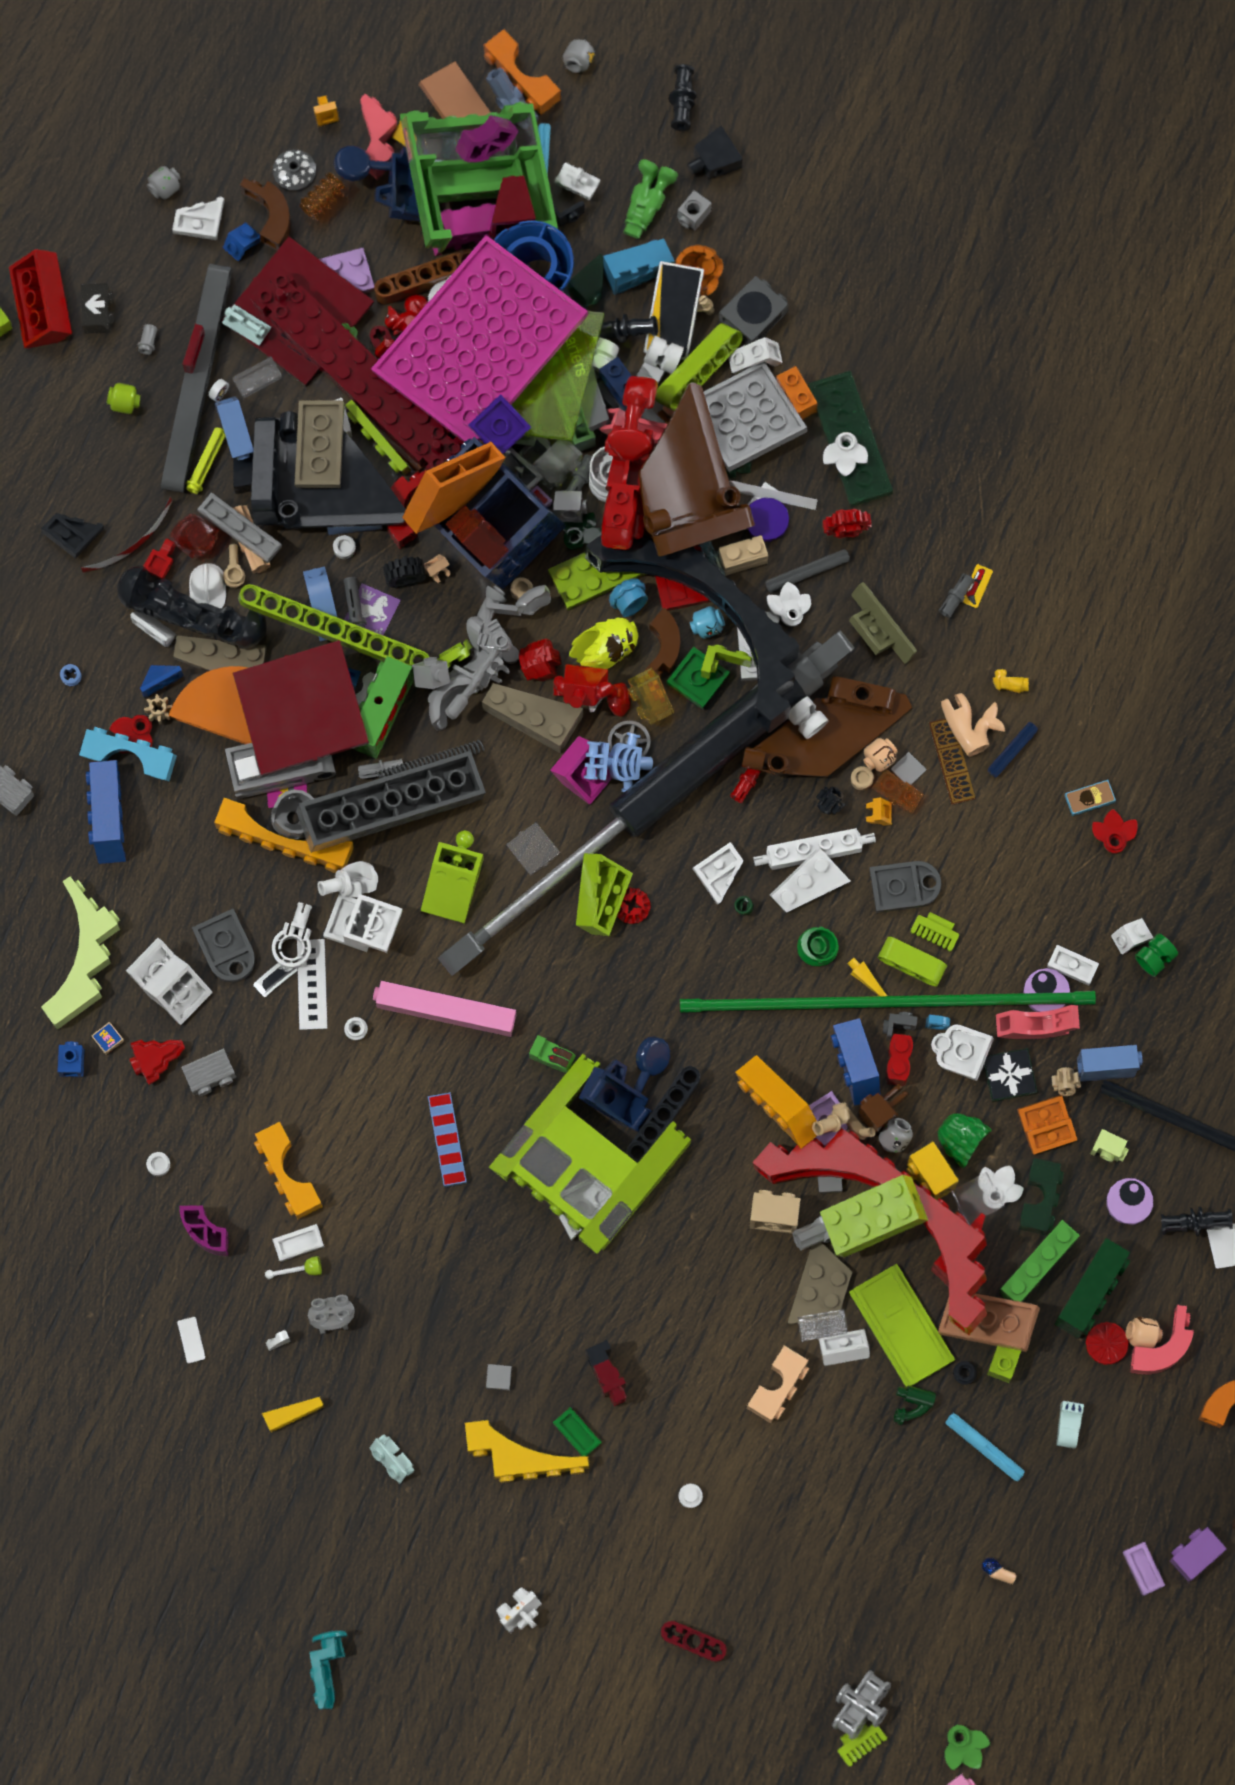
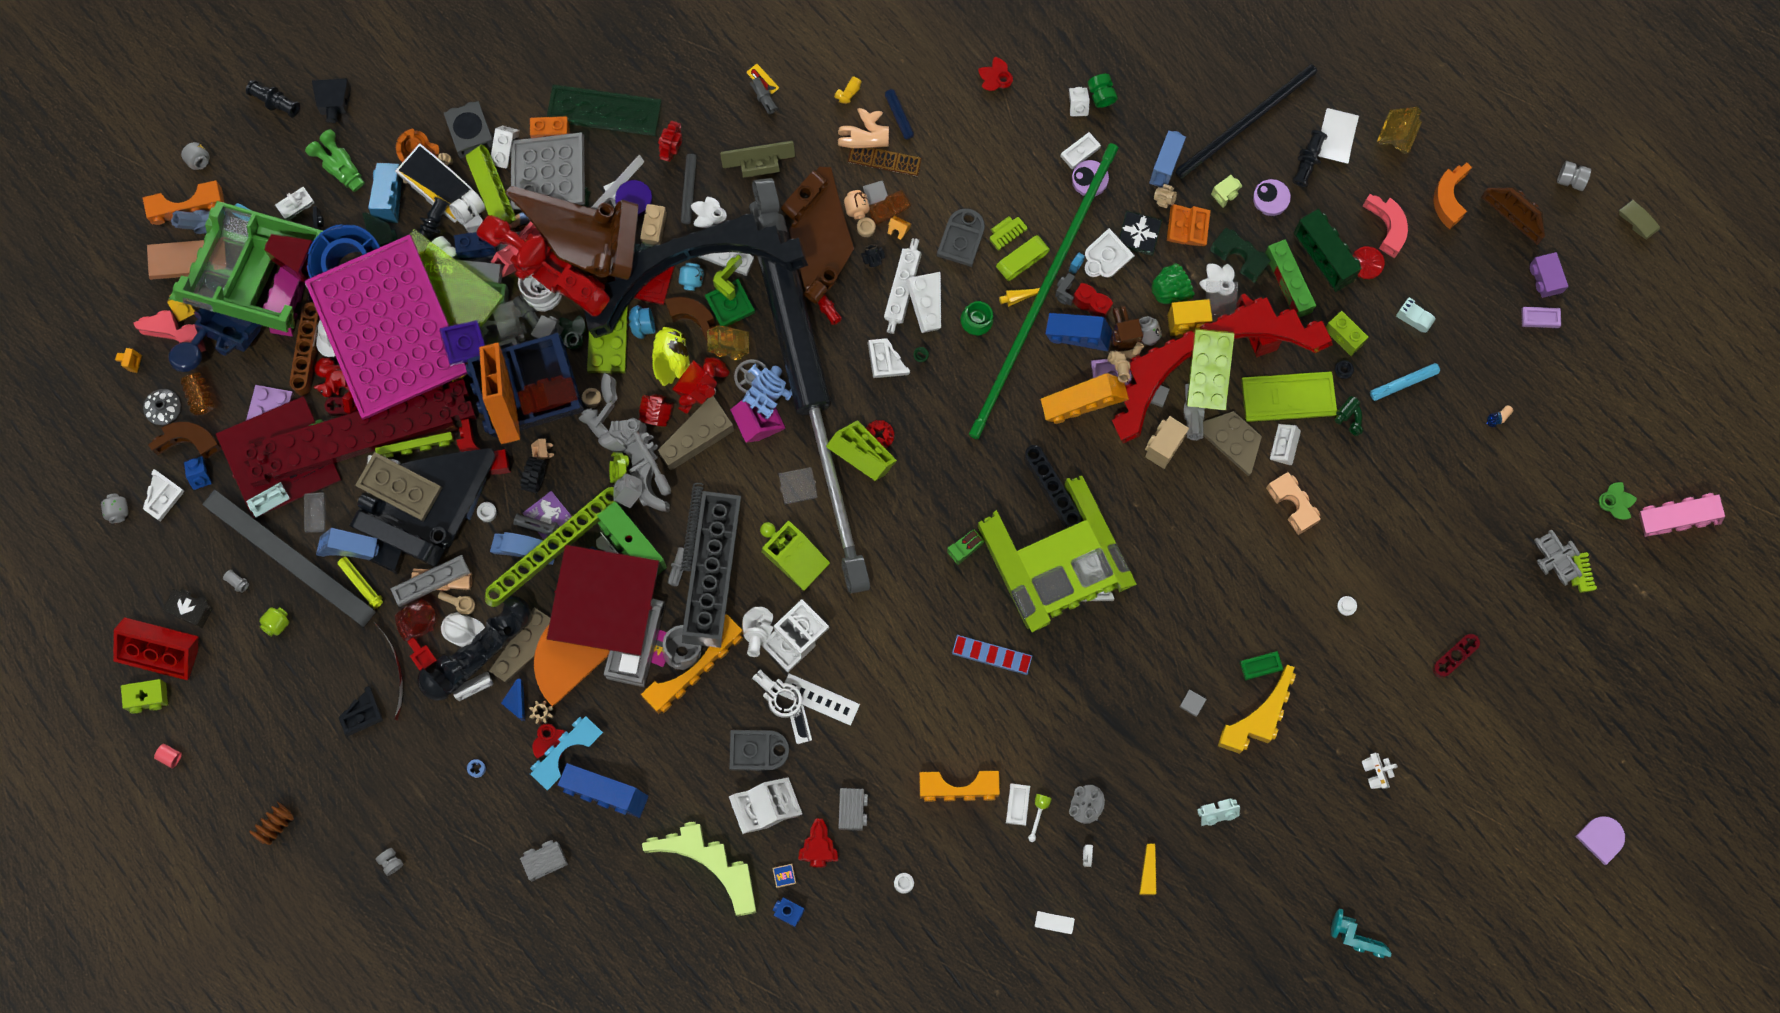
camera: 65 degrees left, 0 degrees up
(193, 348) = (266, 546): dark red tile -> none
(202, 1232) = (976, 872): magenta brick -> none
(218, 390) = (308, 546): white tile -> none
(355, 1022) = (874, 676): white plate -> none
(445, 1008) = (890, 607): bright pink brick -> none
(486, 140) = (226, 248): magenta brick -> none
(605, 1373) = (1229, 622): dark red hips -> none
(617, 1100) = (1022, 514): dark blue piece -> none
(694, 202) = (365, 126): light grey brick -> none
(807, 717) = (807, 237): white wheel -> none
(822, 1325) = (1263, 450): clear plate -> none
(845, 456) = (618, 119): white plate -> none
(1005, 1325) = (1335, 317): nougat tile -> none
(1037, 1025) = (1114, 192): coral arch -> none
(1090, 798) = (962, 80): tile -> none
(1143, 1332) = (1373, 233): light nougat head -> none

